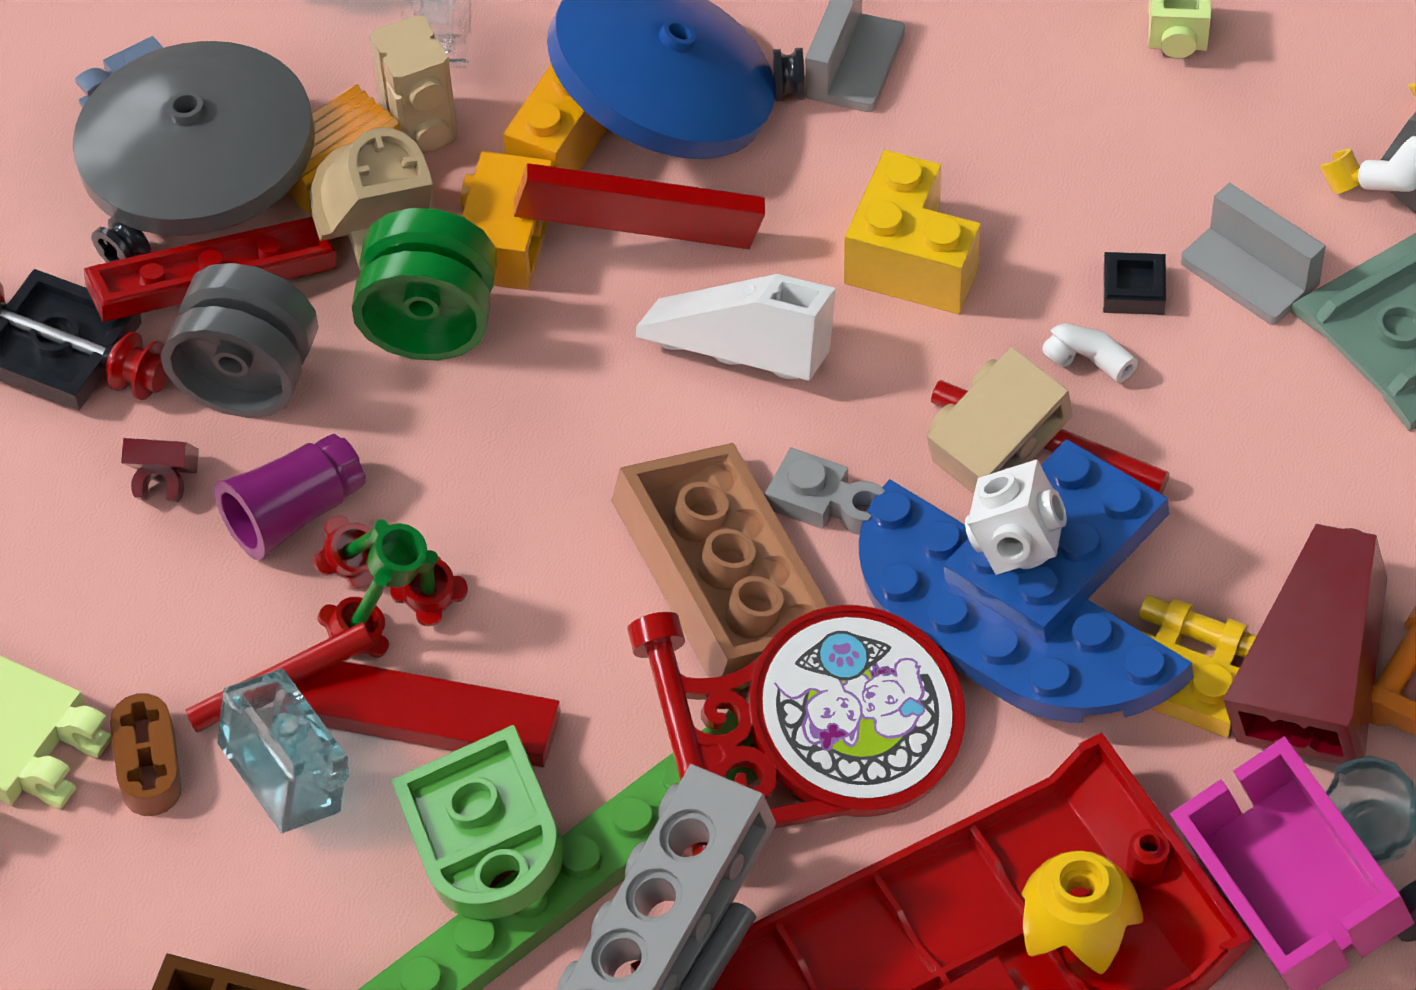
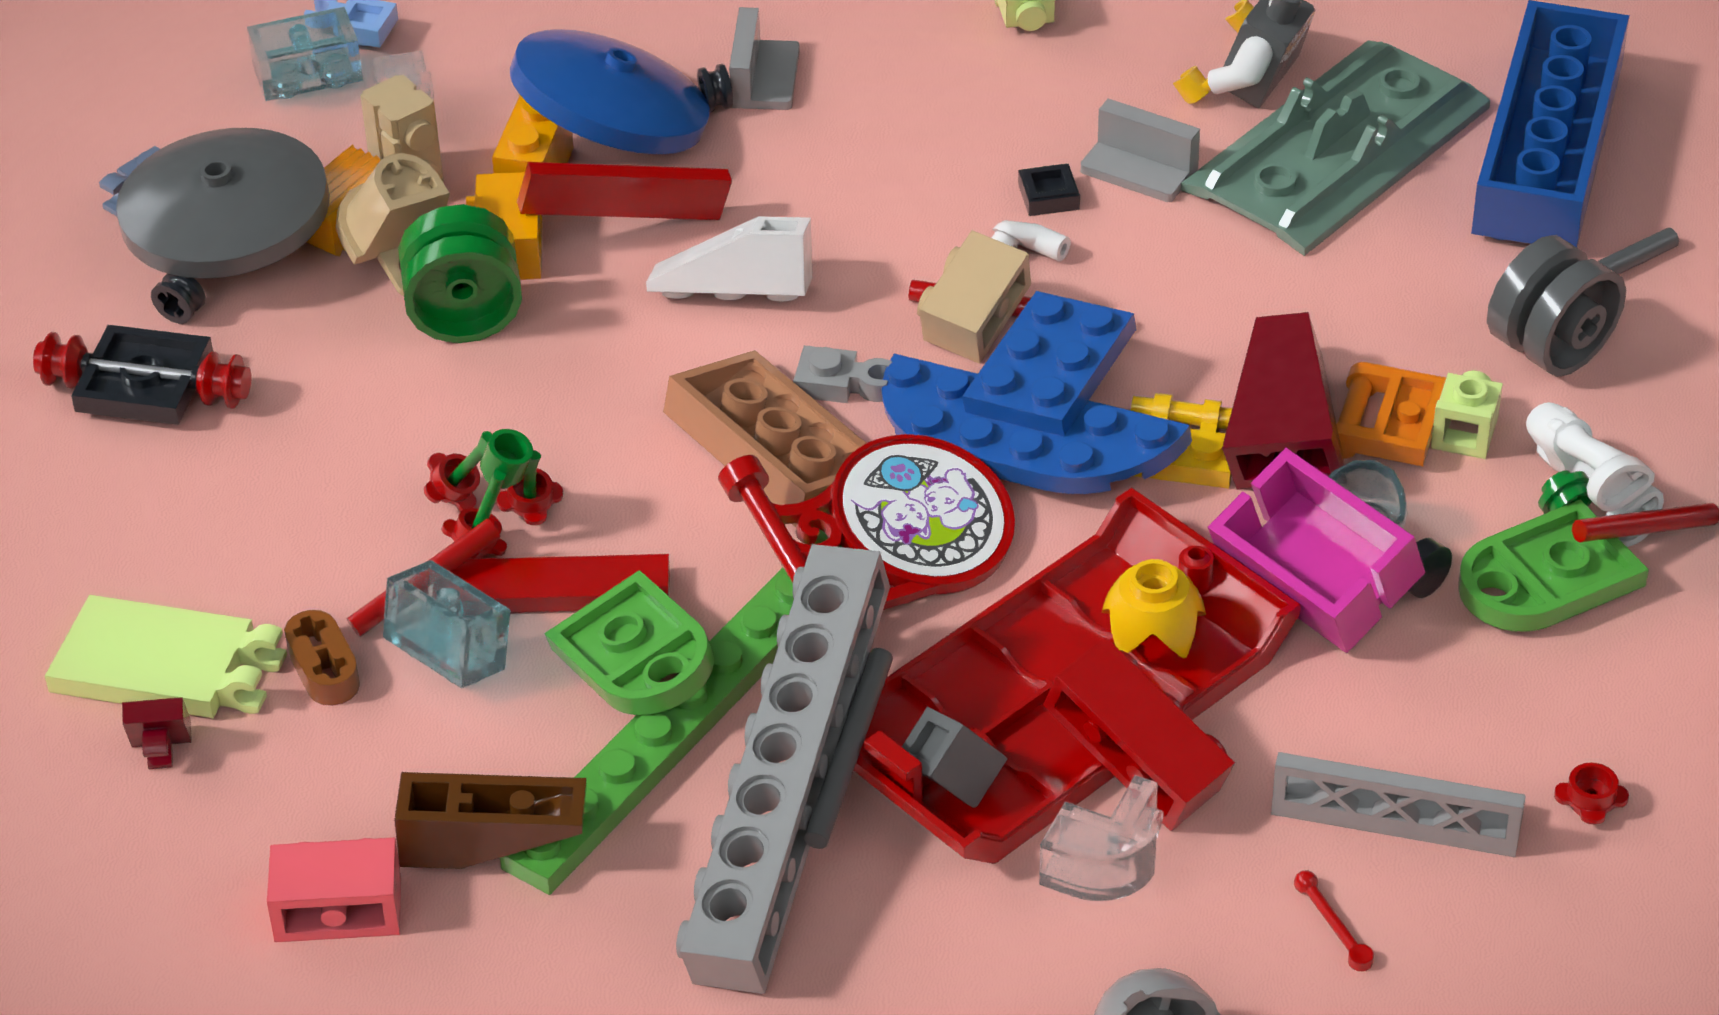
camera: 15 degrees left, 10 degrees down
(159, 459) = (265, 441): dark red tile -> none
(163, 276) = (262, 300): red tile -> none
(240, 340) = (312, 339): dark grey wheel -> none
(287, 493) = (381, 450): magenta plant -> none
(904, 242) = (856, 188): yellow brick -> none
(1016, 518) = (1020, 338): white brick -> none

